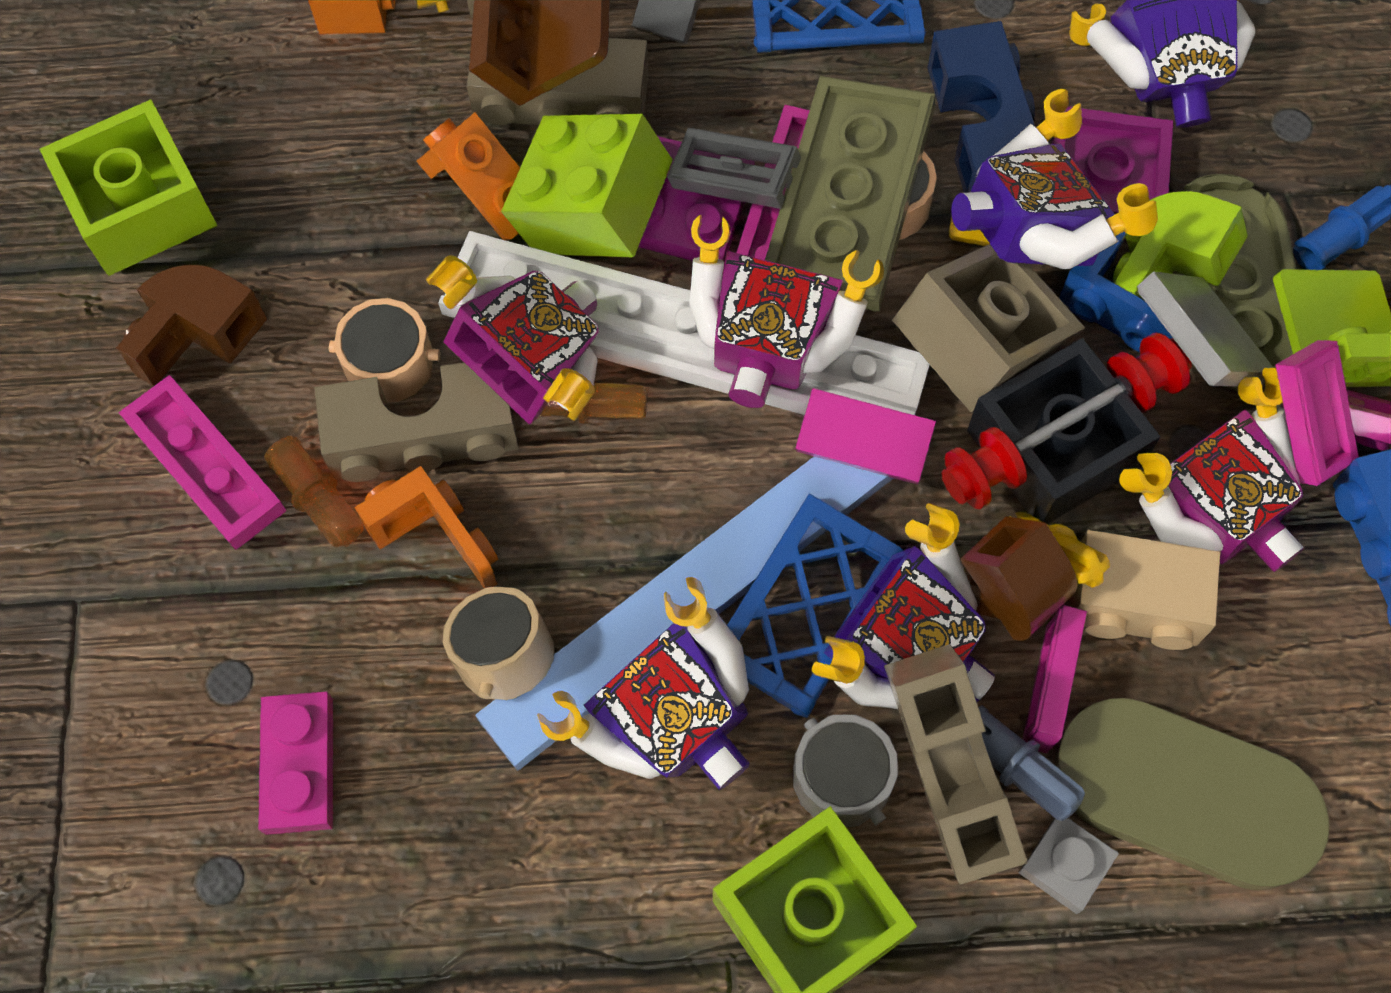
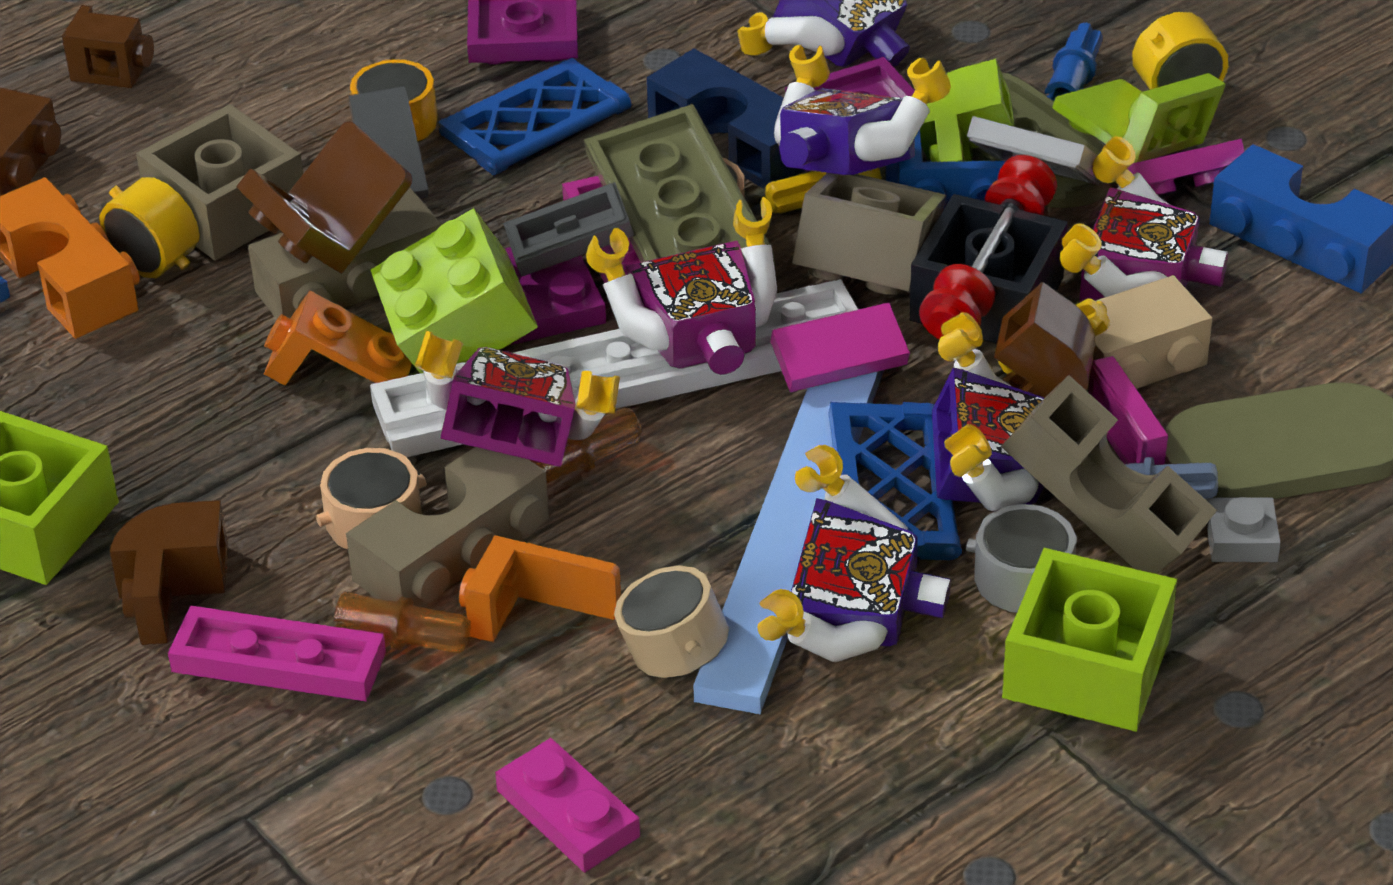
camera: 35 degrees left, 25 degrees down
(1317, 411) = (1163, 156): dark pink tile -> none

